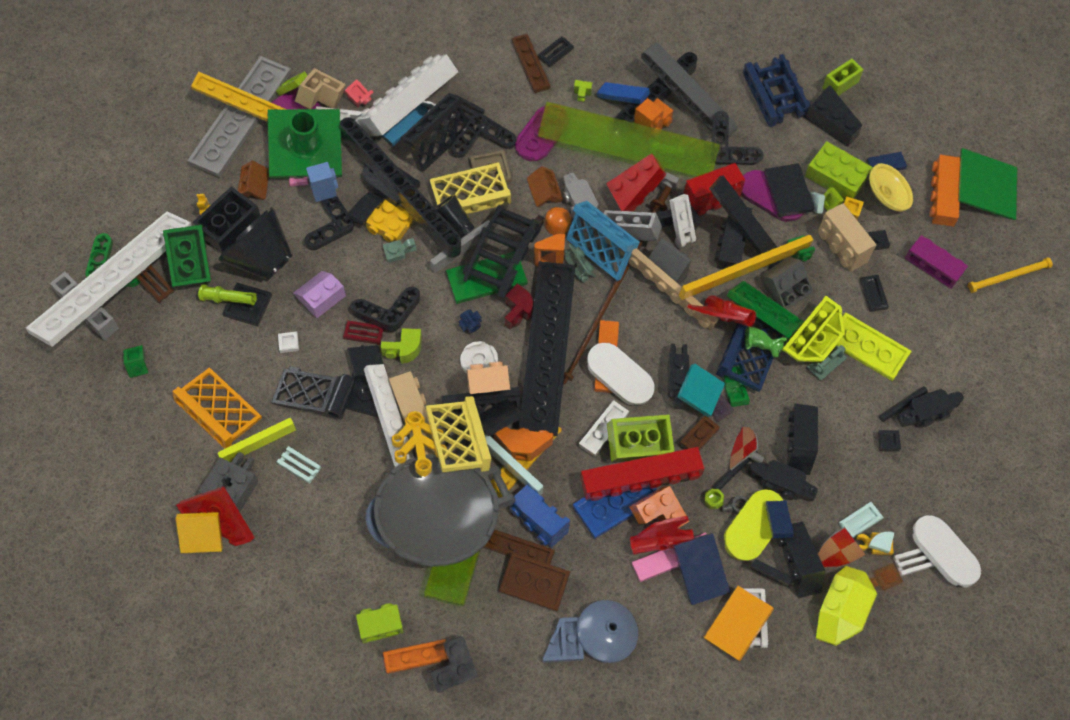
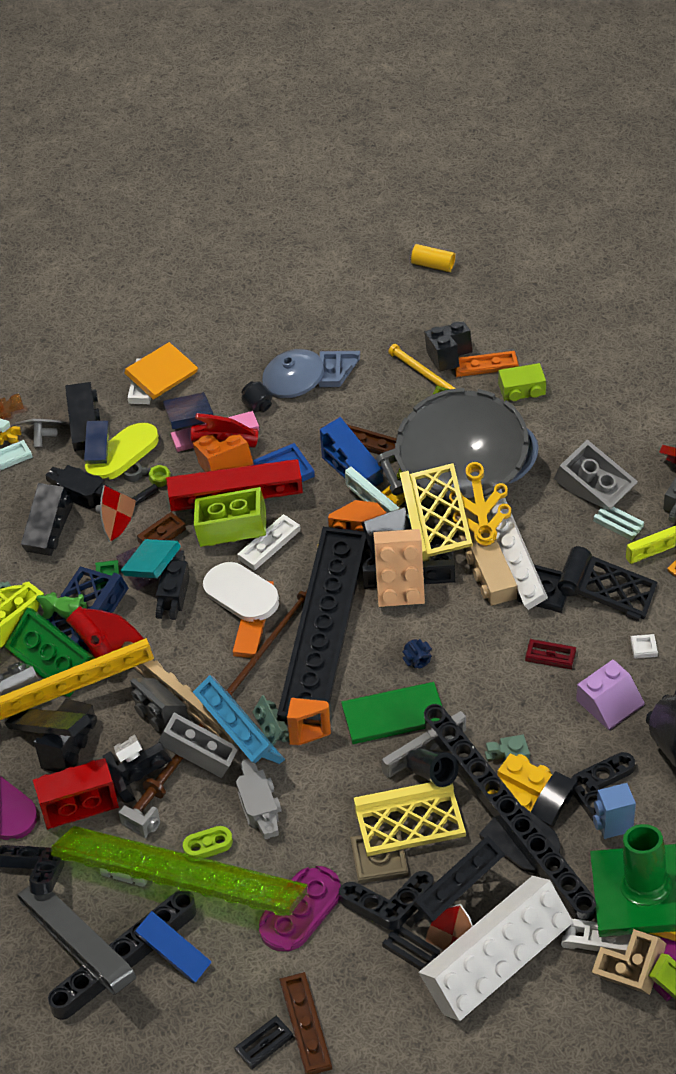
camera: 170 degrees left, 15 degrees down
(316, 502) = (594, 476): none -> light grey slope
(358, 94) = (570, 971): coral bracket -> none
(363, 356) = (546, 618): black piece -> none
(387, 315) = (521, 663): black beam -> none
(407, 349) = (496, 626): lime brick -> none
(471, 355) = (405, 626): white tile -> none
(507, 669) = (395, 350): none -> yellow bar
(521, 248) = (346, 713): black fence -> none
(521, 304) = (353, 669): dark red brick -> none
(534, 581) = (362, 413): reddish brown tile -> none
(544, 186) = (304, 823): dark orange panel -> none
(557, 221) = (292, 778): orange hair -> none
(582, 88) = (230, 965): lime tile -> none
(611, 169) = (207, 843): none -> lime plate
(636, 183) = (179, 802): red wedge -> none
(638, 595) = (256, 396): none -> black head
(653, 114) = (140, 898): orange brick -> none
(771, 572) = (117, 410): black tile -> none
(845, 606) = (46, 381): neon yellow wedge -> none

